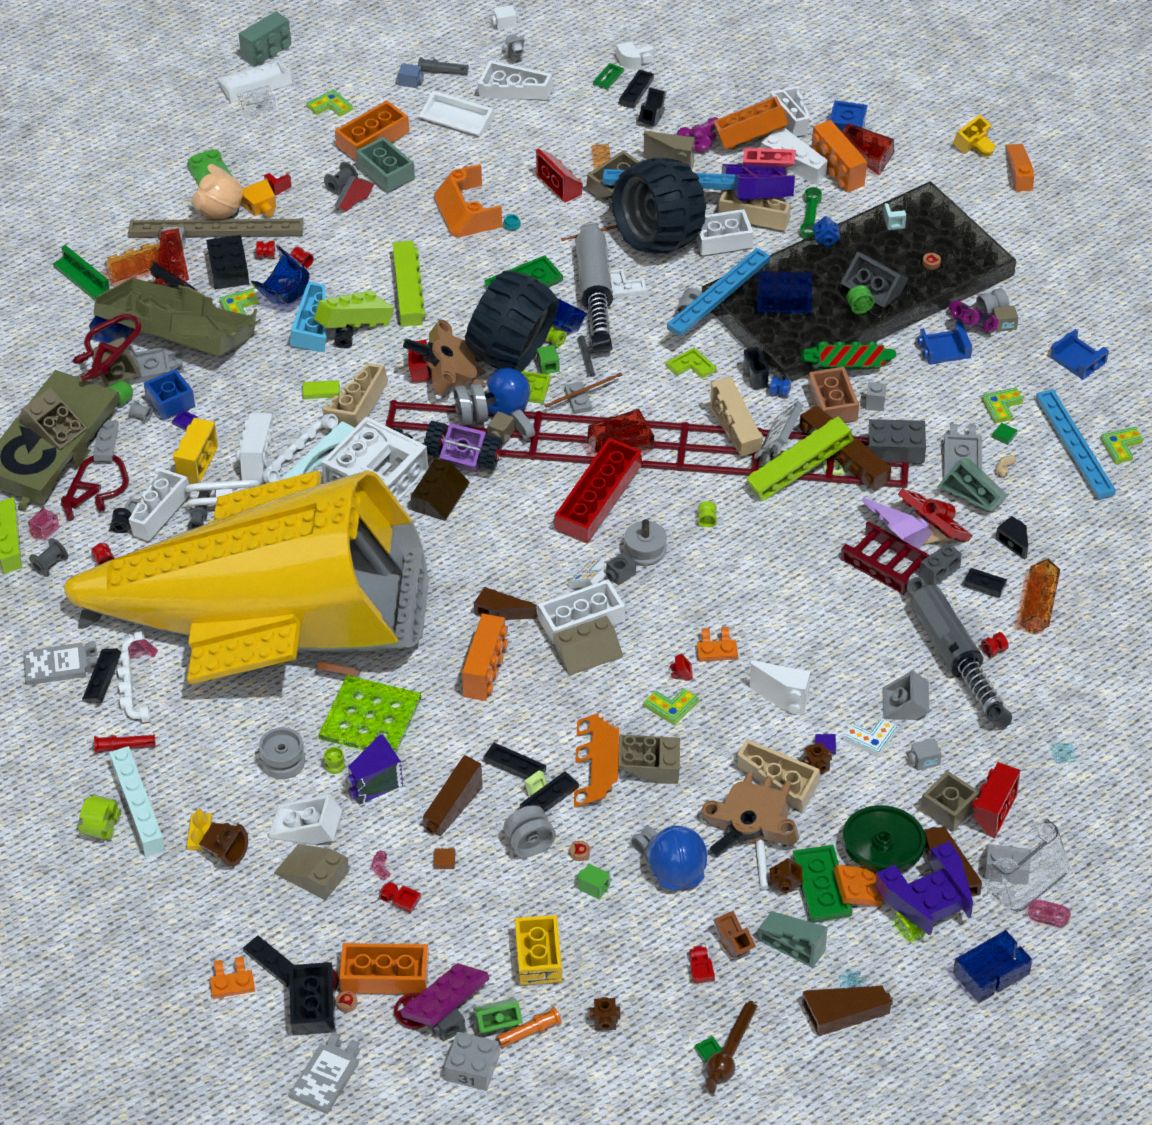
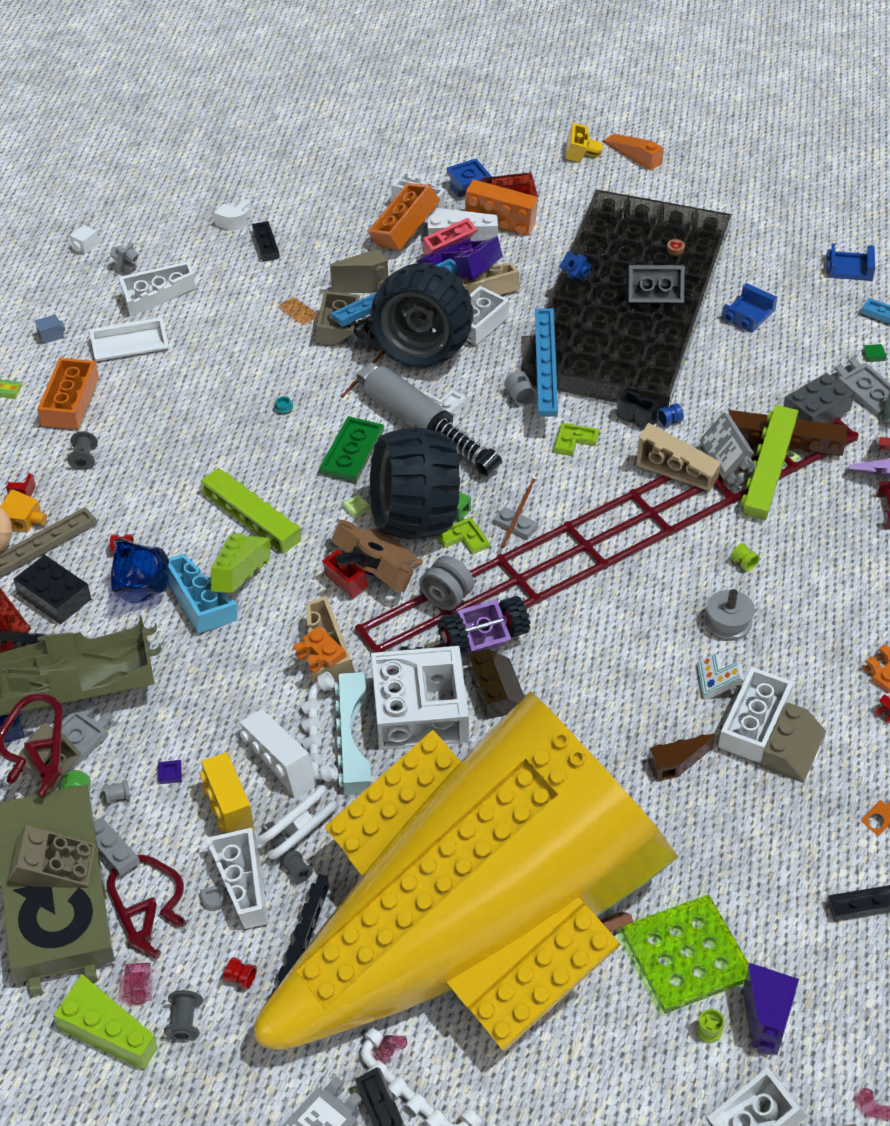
camera: 40 degrees left, 0 degrees up
(88, 618) = (292, 1057): dark grey tile -> none
(120, 520) = (216, 919): black wheel -> none
(169, 394) = (133, 754): blue brick -> none
(237, 301) = (100, 621): lime tile -> none
(265, 249) = (78, 555): red wheel -> none
(282, 753) = (659, 1057): light grey wheel -> none
(321, 389) = (274, 657): lime tile -> none
(344, 336) = (246, 595): black wheel -> none
(345, 396) = (323, 646): none -> orange plate
(353, 191) = (112, 455): red tile -> none
(385, 164) = (114, 415): sand green brick -> none
(434, 66) = (62, 310): dark grey pin -> none
(454, 796) = (864, 979): reddish brown slope -> none
(463, 217) = (223, 419): orange windscreen -> none
(484, 657) = (730, 816): orange brick -> none
(501, 426) = (489, 587): dark tan brick -> none
(509, 389) = (466, 545): blue piece -> none
(523, 424) = (504, 574): light grey beam -> none
(557, 176) = (283, 345): red slope -> none
(586, 356) = (481, 484): flat silver piece -> none
(598, 490) = (640, 593): red brick -> none
(610, 78) = (229, 251): green tile -> none
(620, 568) = (735, 650): dark grey brick -> none
(626, 428) = (603, 529): clear red wedge -> none
(653, 109) = (300, 247): black brick -> none
(701, 133) = (360, 246): magenta animal -> none
(784, 292) = (600, 331): clear blue piece -> none
(811, 209) = (524, 266): green piece -> none
(834, 393) = (720, 392): nougat brick -> none
(848, 356) = (701, 356): green hinge -> none
(860, 299) = (666, 304): bright green wheel -> none
(875, 396) = (753, 378): light grey brick -> none
(895, 219) = (609, 231): light aqua panel -> none
(972, 316) = (745, 274): magenta connector -> none
(987, 301) = (745, 257): light grey wheel -> none
(999, 401) = (840, 331): lime tile -> none
(1006, 317) = (767, 265): dark tan brick -> none

